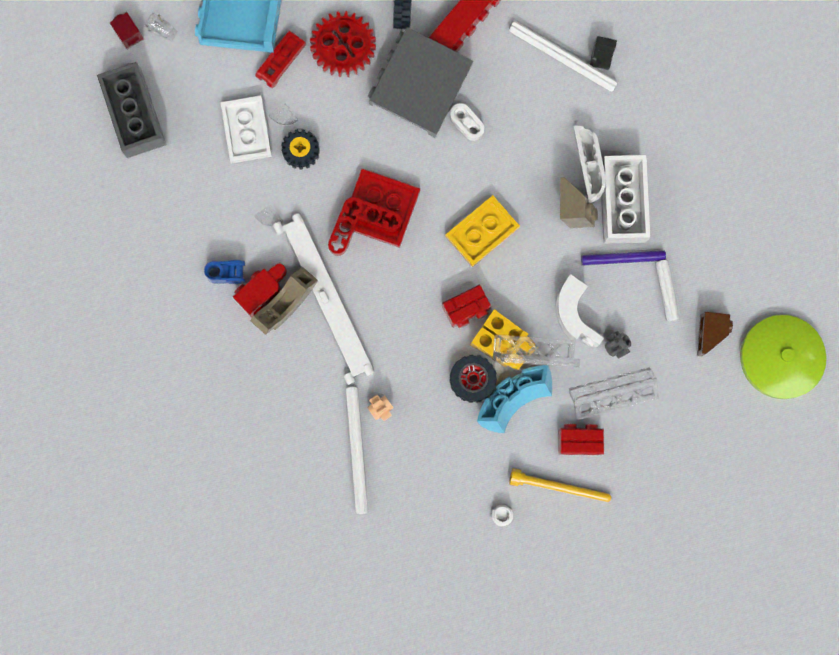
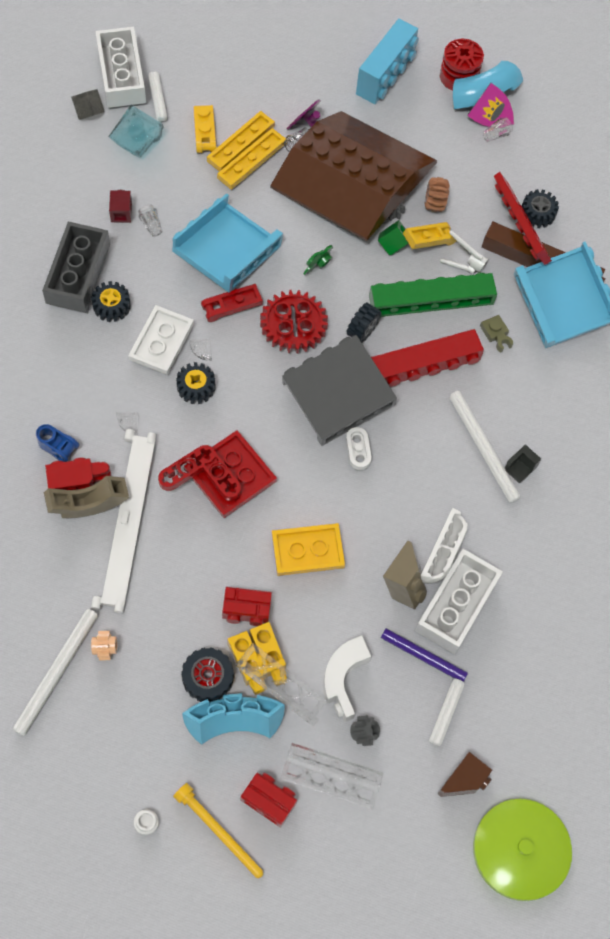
camera: 30 degrees right, 15 degrees down
(177, 115) = (105, 296): none -> black wheel

